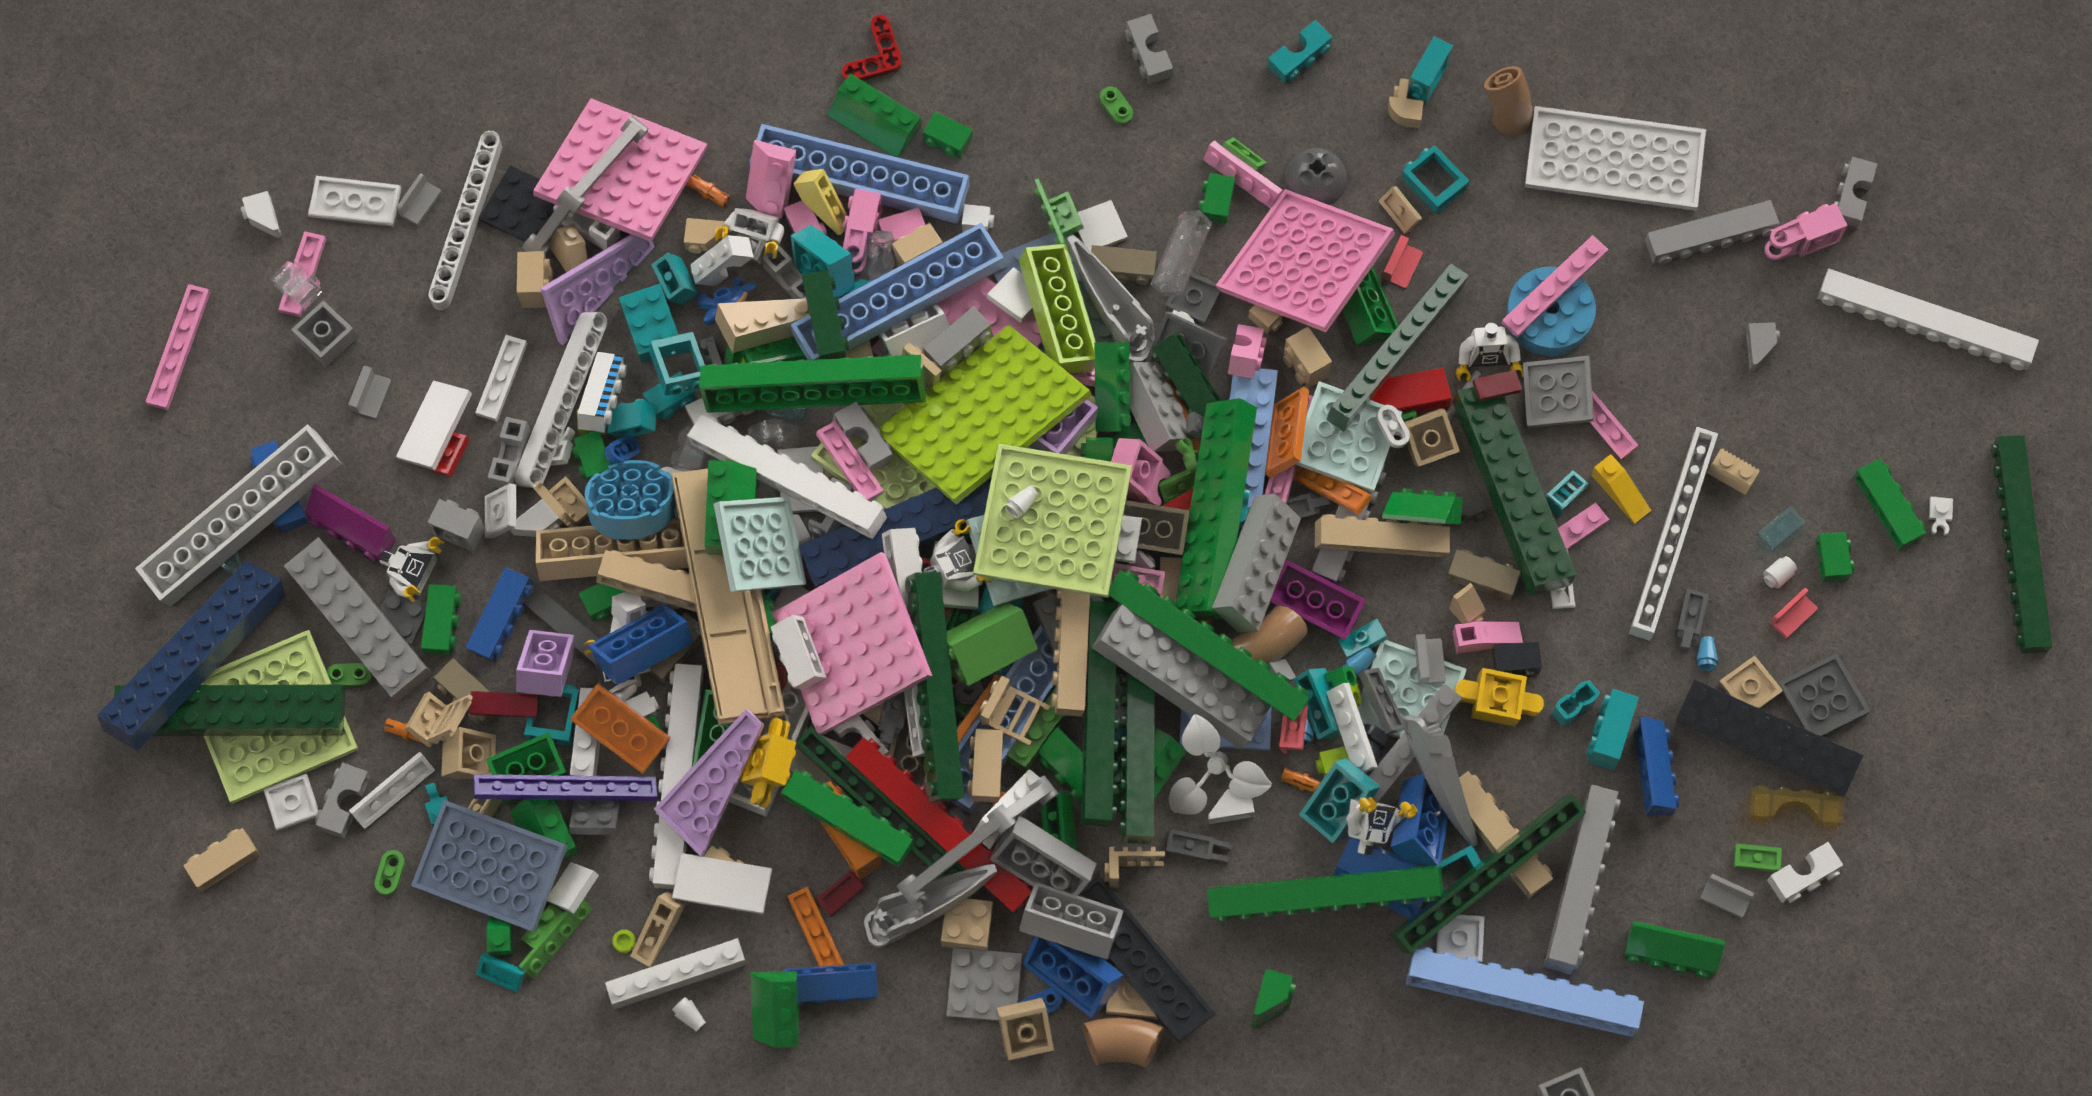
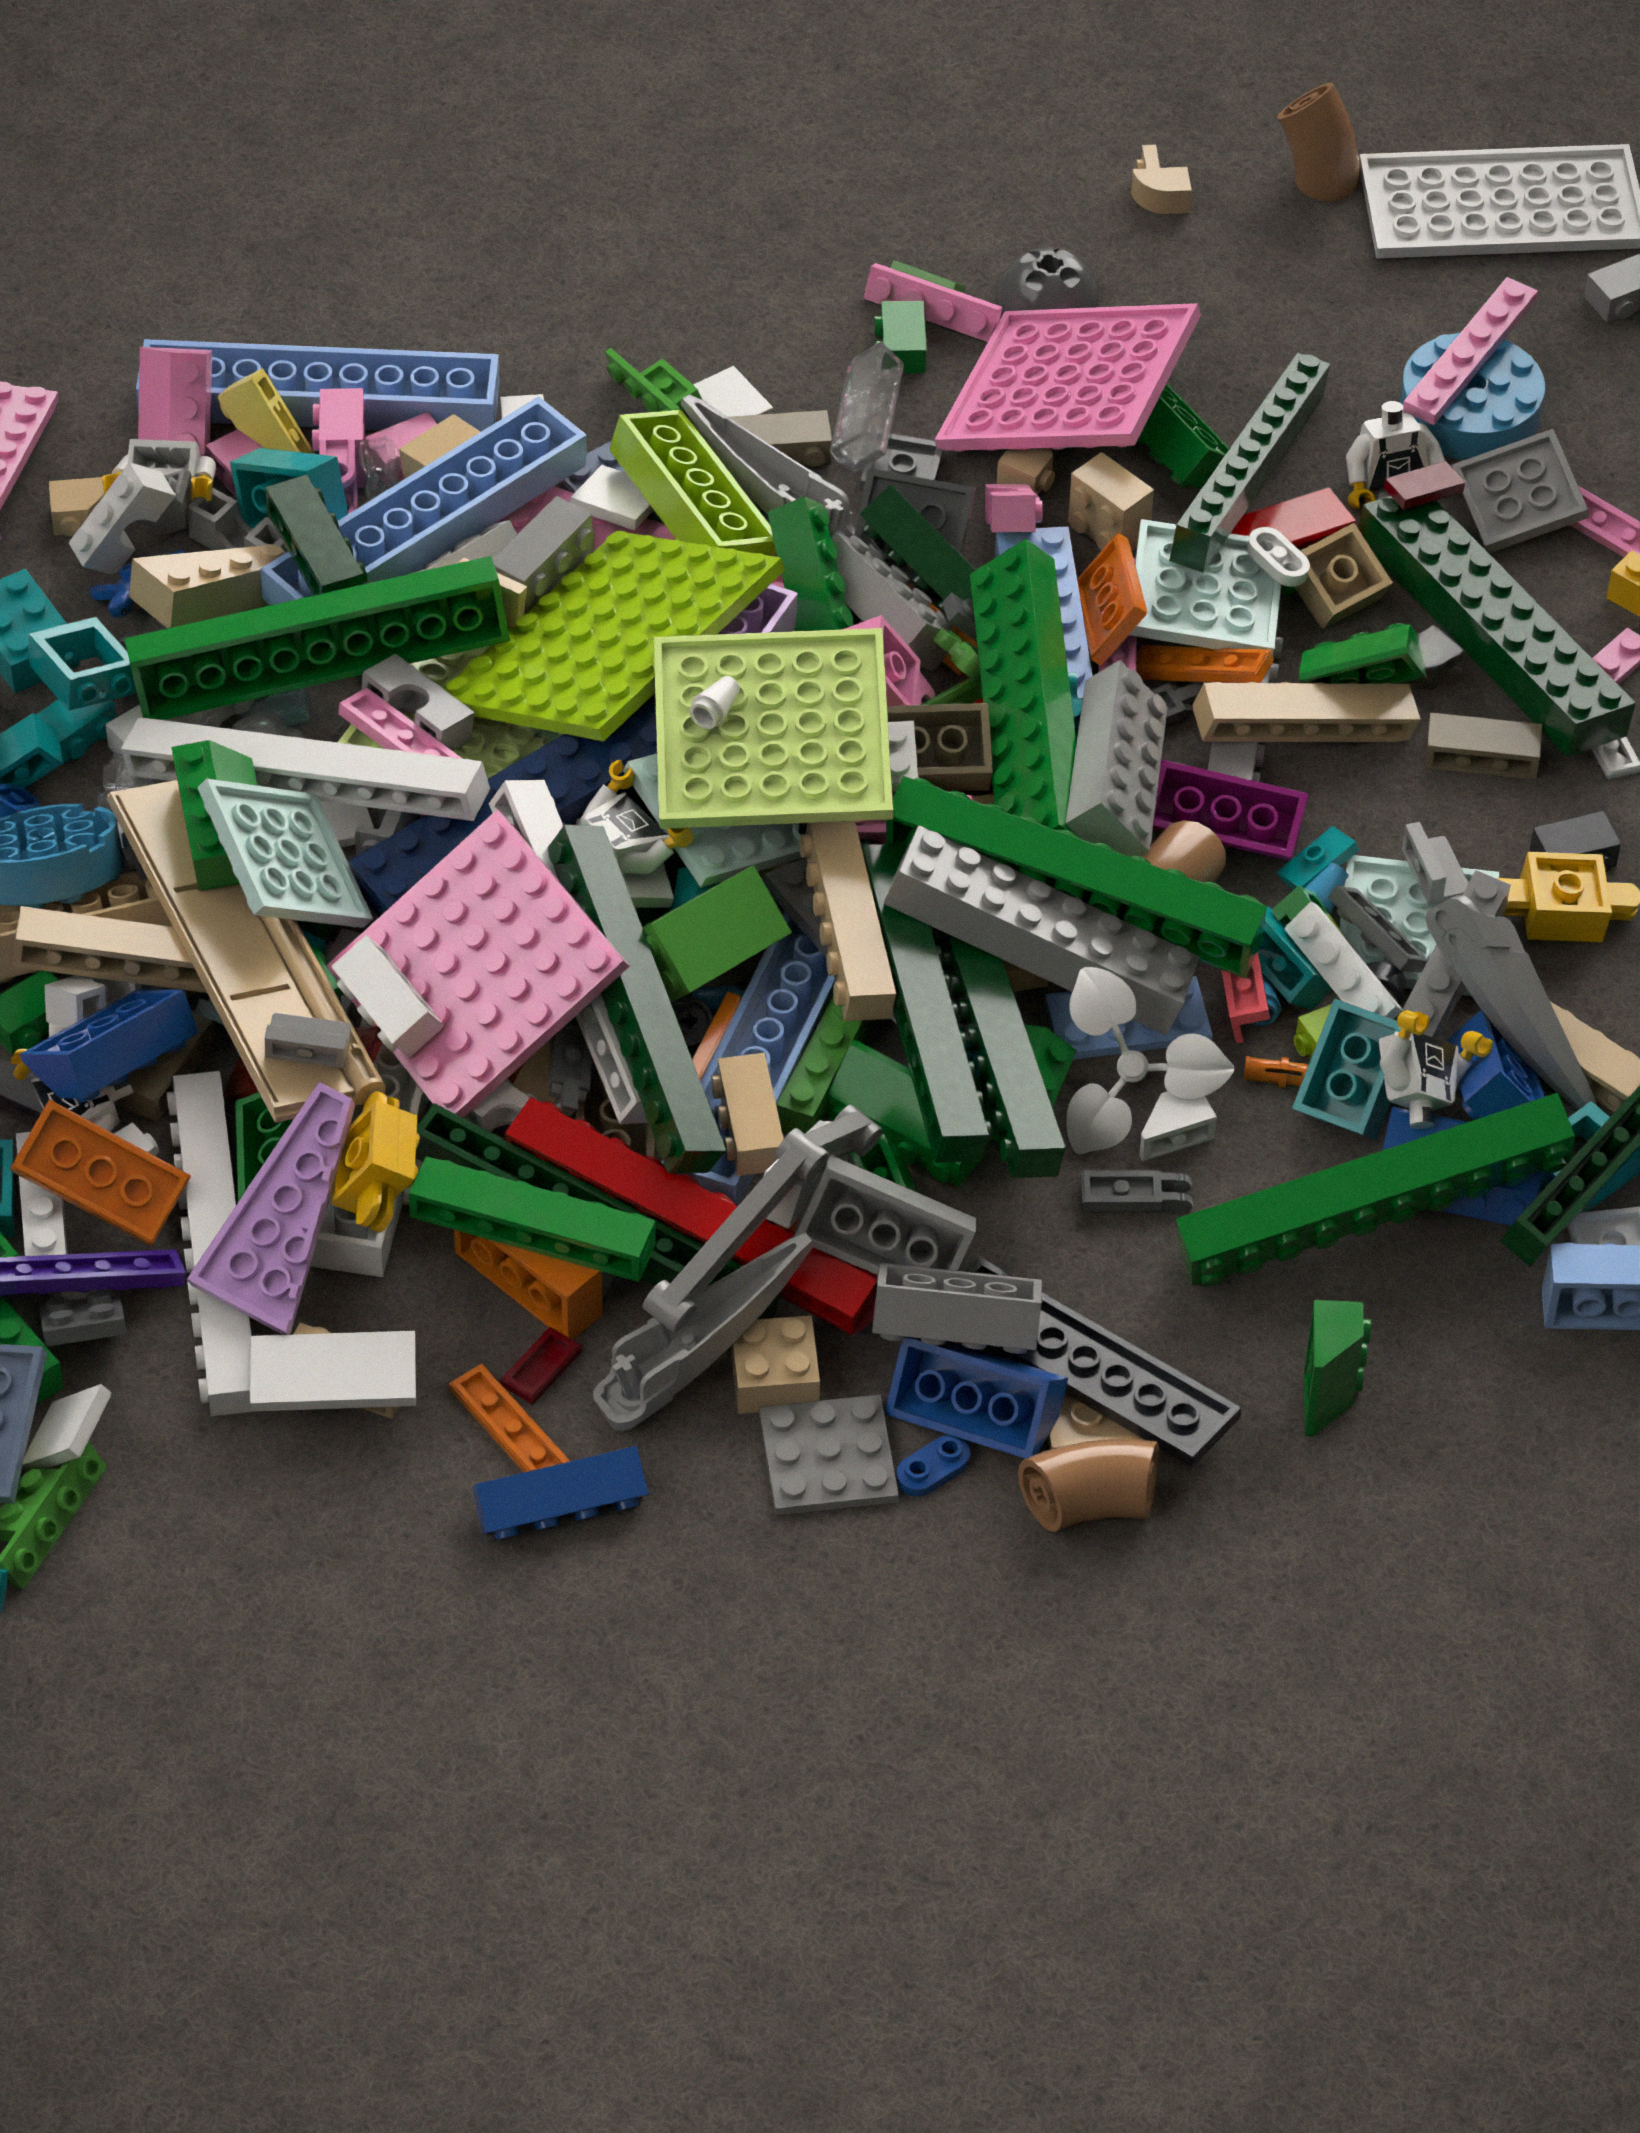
camera: 15 degrees left, 20 degrees down
(624, 941) = (175, 1502): lime tile -> none
(657, 928) = (232, 1467): tan slope -> none
(674, 278) = (47, 564): teal brick -> none
(675, 973) = (280, 1527): white brick -> none
(688, 1013) = (317, 1587): white cone -> none
(708, 190) = (74, 451): orange pin -> none
(746, 676) = (307, 1040): none -> light grey panel
(775, 1008) = (472, 1537): green slope -> none
(874, 116) = (321, 310): green slope -> none
(880, 60) = (313, 249): red beam -> none
(947, 135) = (448, 322): green brick -> none
(998, 705) = (747, 1023): tan plate -> none
(1025, 1029) = (920, 1491): tan brick -> none
(1116, 104) = (706, 251): bright green plate -> none
(1120, 858) = (1008, 1220): tan plate -> none
(1154, 65) = (724, 158): light grey arch -> none
(1287, 64) = (990, 129): teal arch -> none
(1400, 209) = (1213, 315): tan plate -> none
(1402, 263) = (1218, 376): coral panel -> none
(1429, 70) = (1186, 123): teal window -> none
(1437, 203) = (1225, 284): teal window -> none
(1467, 605) = (1473, 785): tan slope -> none
(1484, 635) = (1505, 823): bright pink slope -> none
(1557, 503) = (1581, 632): teal slope -> none

